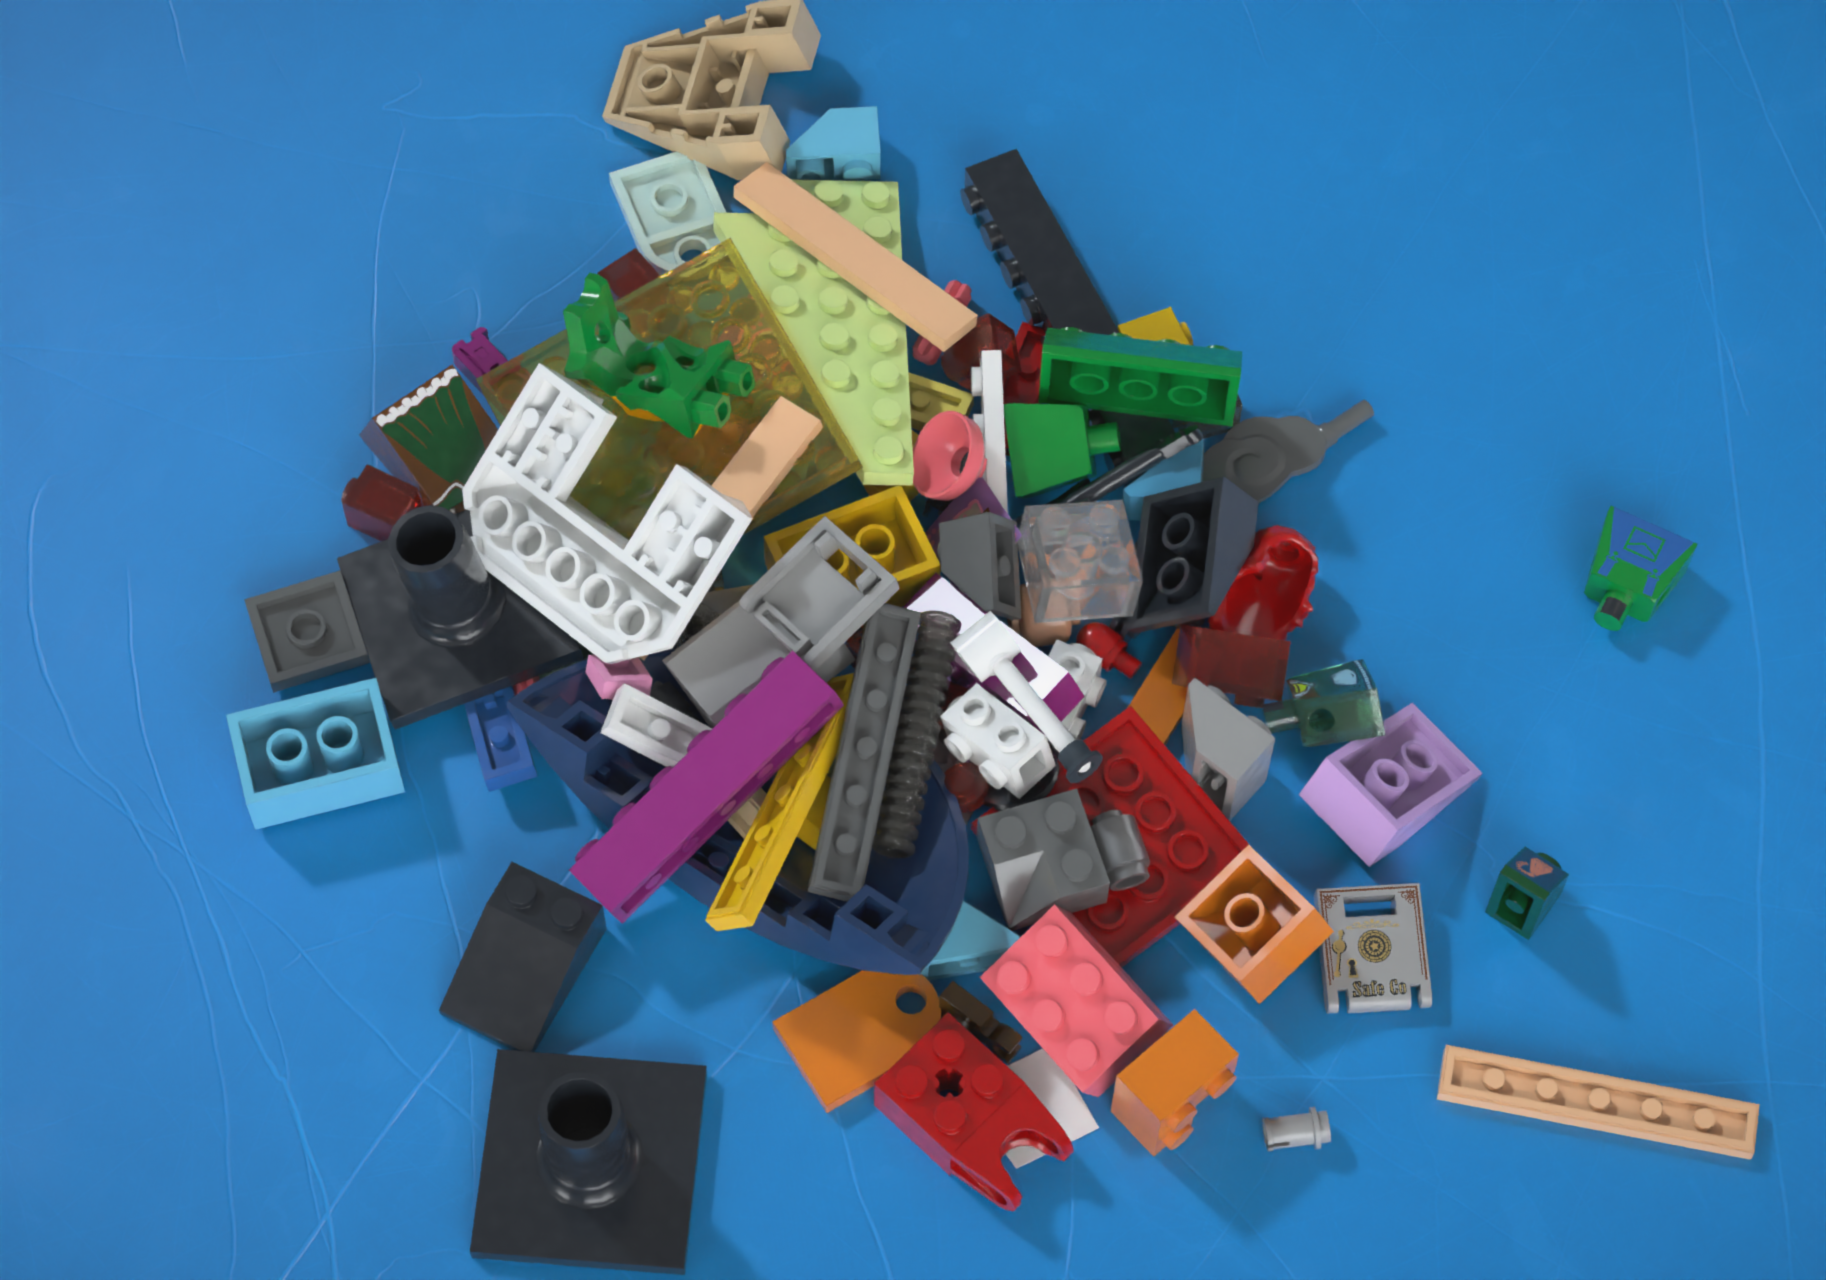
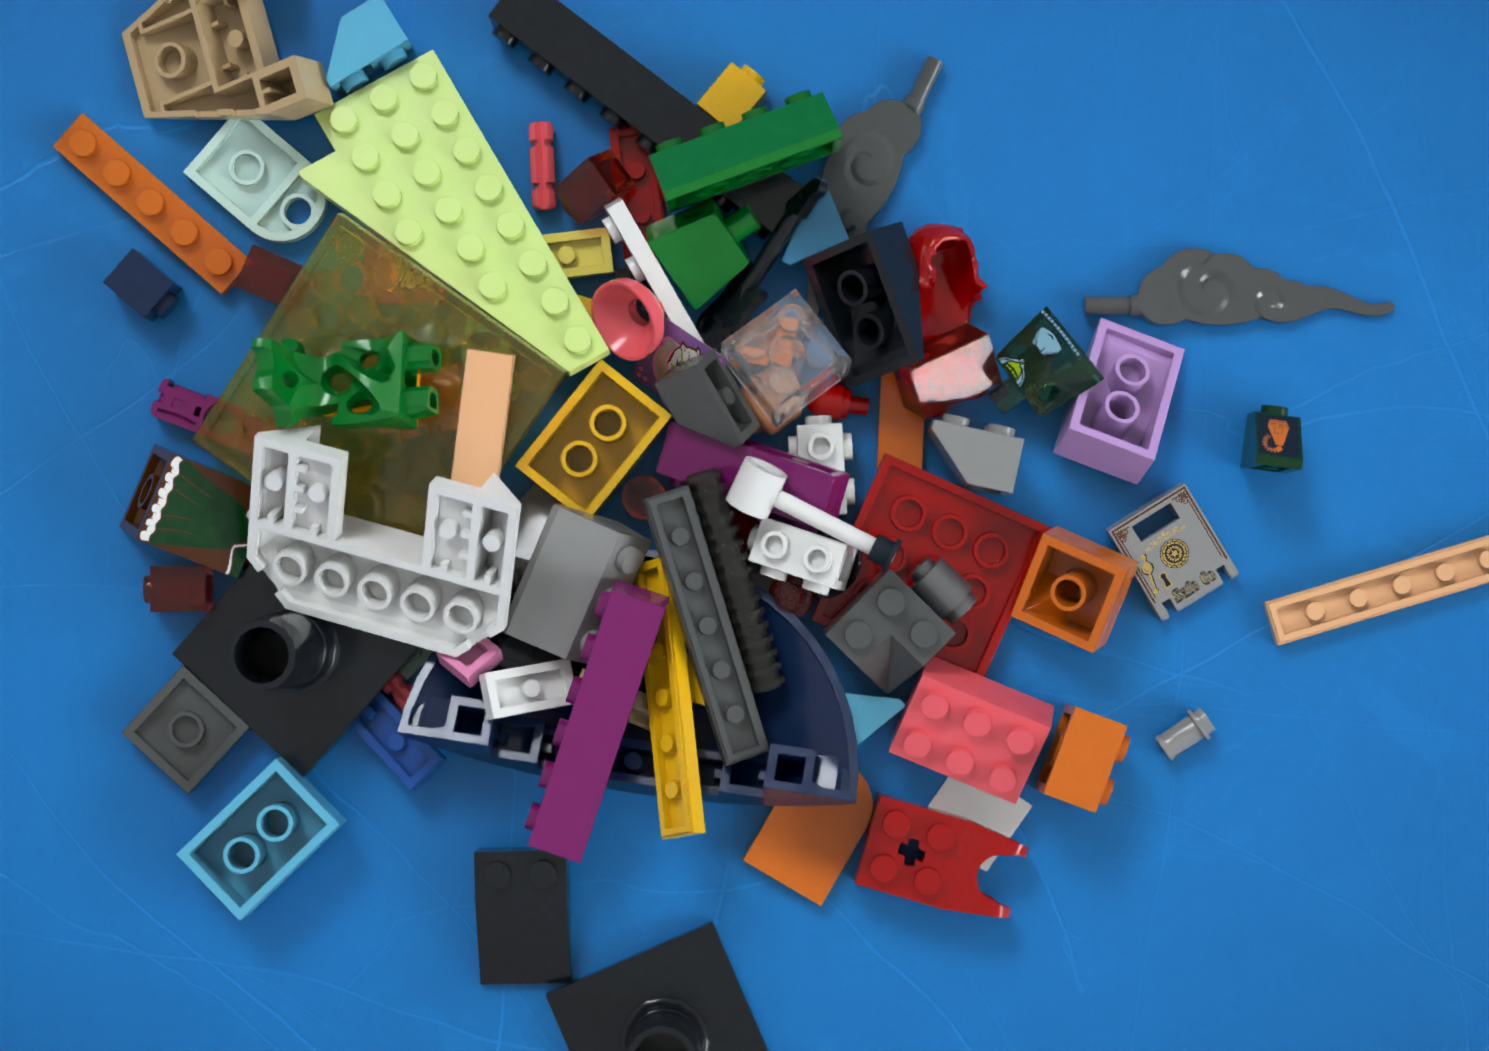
camera: 25 degrees left, 25 degrees up
(513, 243) = (144, 286): none -> dark blue brick
(562, 183) = (152, 203): none -> orange plate
(811, 602) = (599, 525): light grey container -> none
(855, 256) = (444, 159): light nougat tile -> none
(980, 1022) = (889, 779): dark brown plate -> none
(1550, 741) = (1224, 292): none -> dark grey piece
(1634, 568) = (1223, 103): torso -> none

